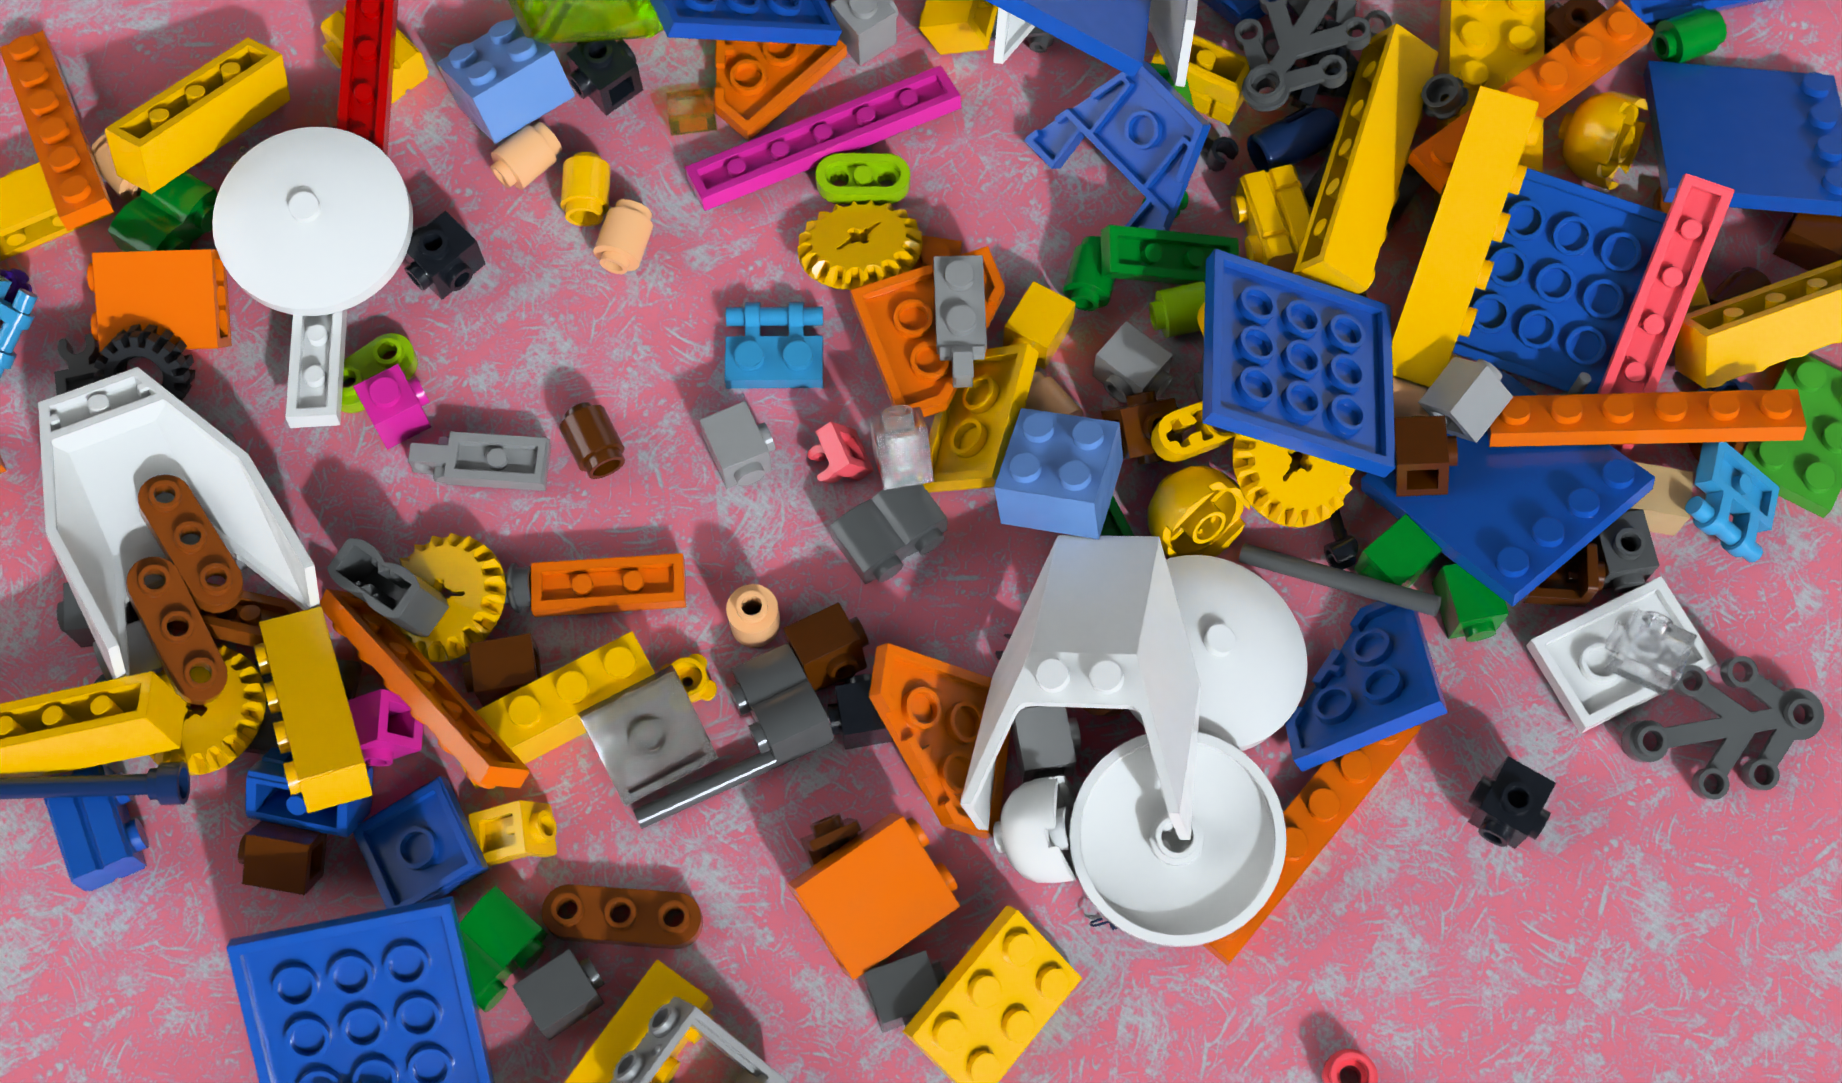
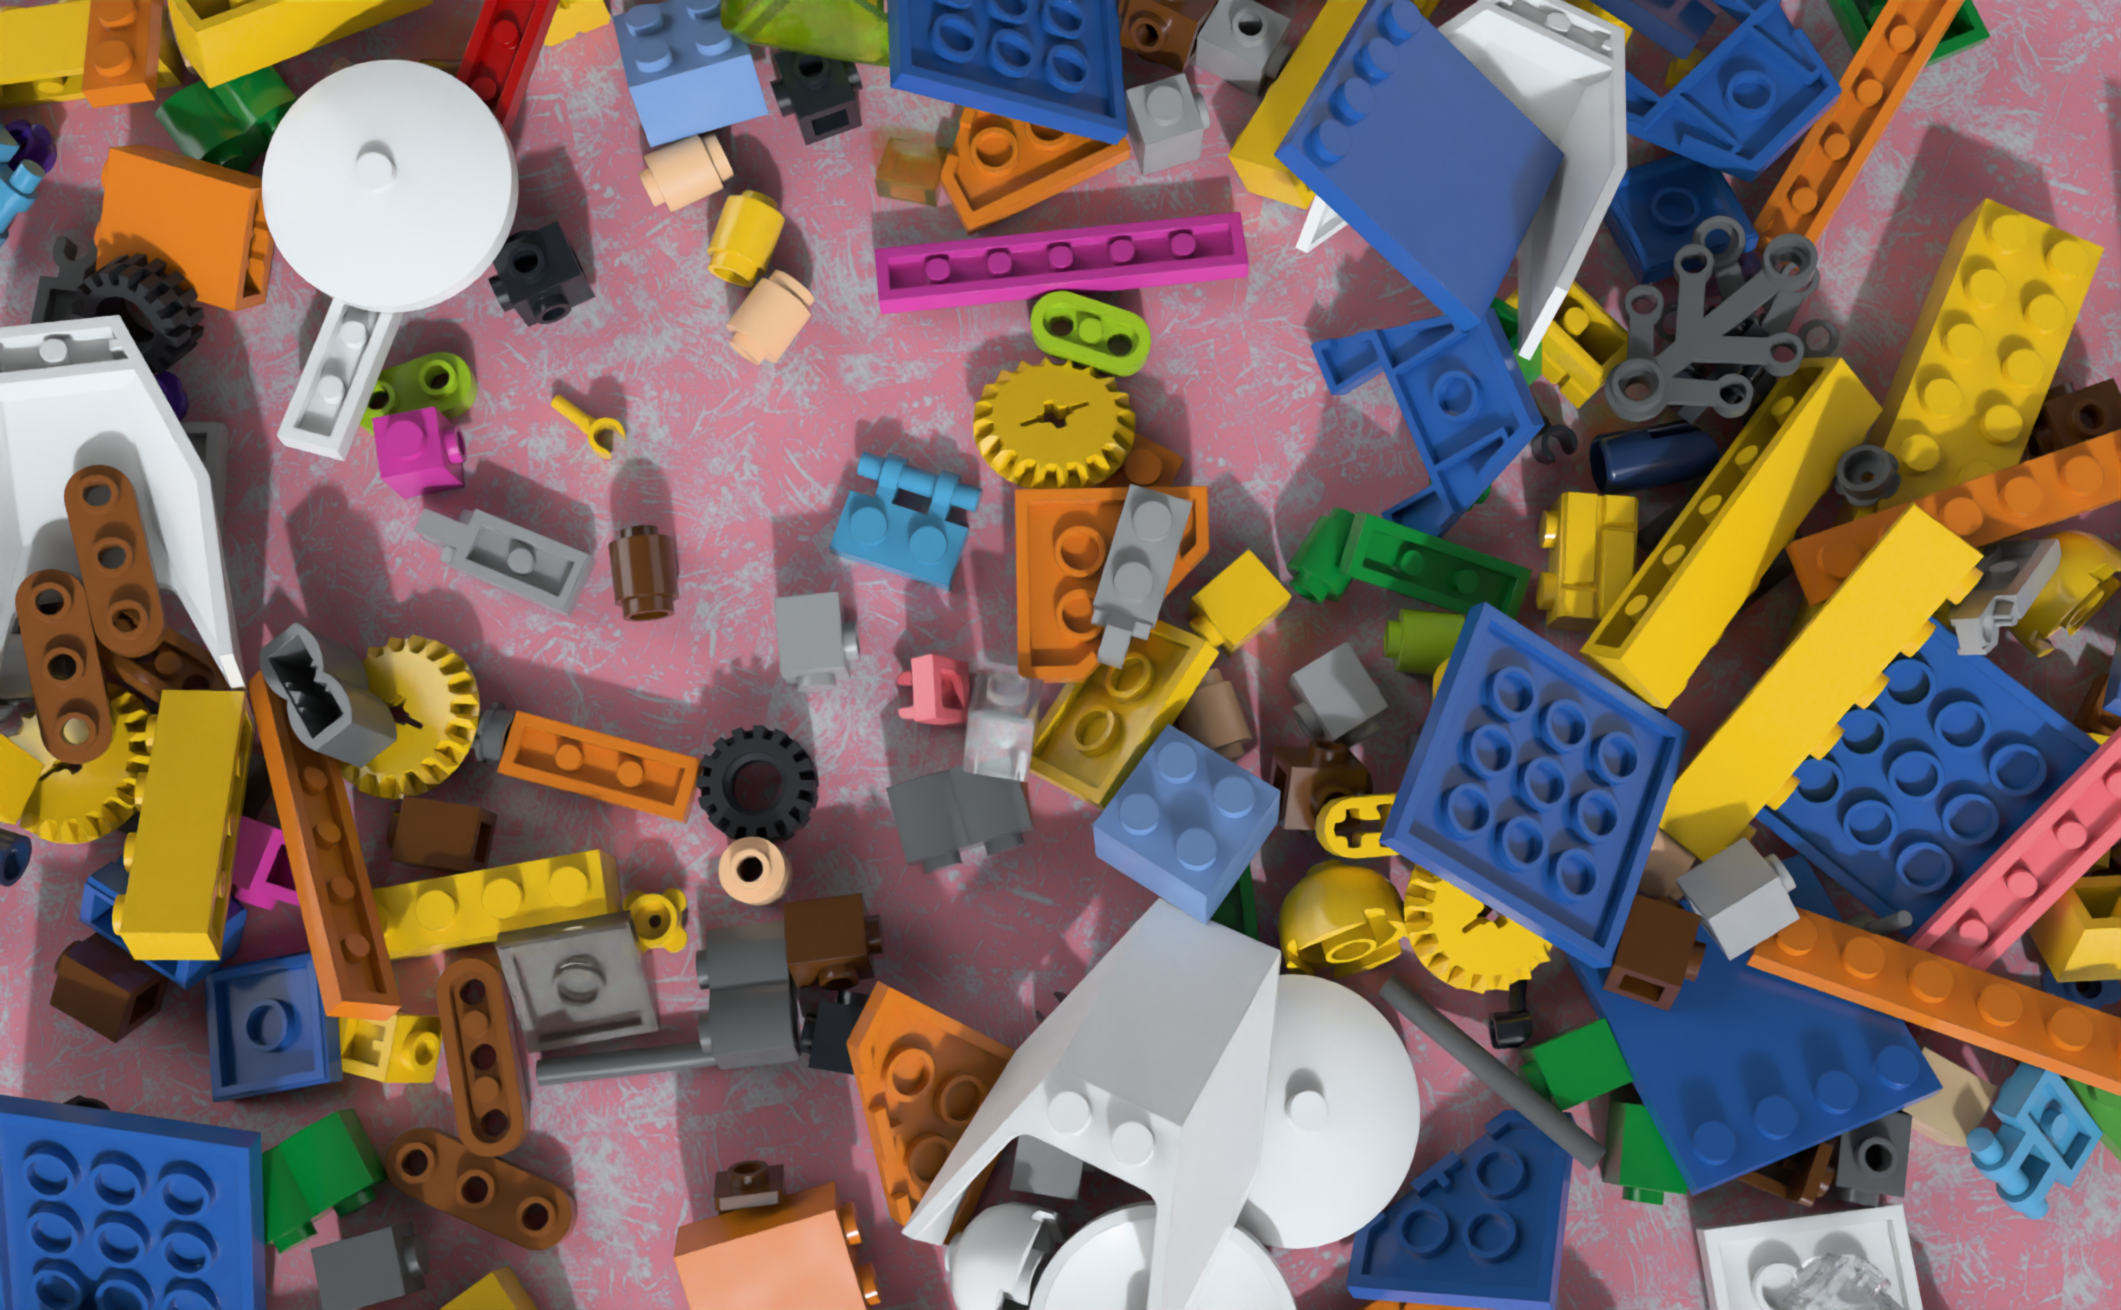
camera: 20 degrees right, 10 degrees up
(516, 353) = (588, 424): none -> yellow hand
(580, 800) = (464, 1033): none -> dark orange plate
(721, 534) = (733, 756): none -> black tyre
(1563, 138) = (2010, 584): none -> light grey hinge

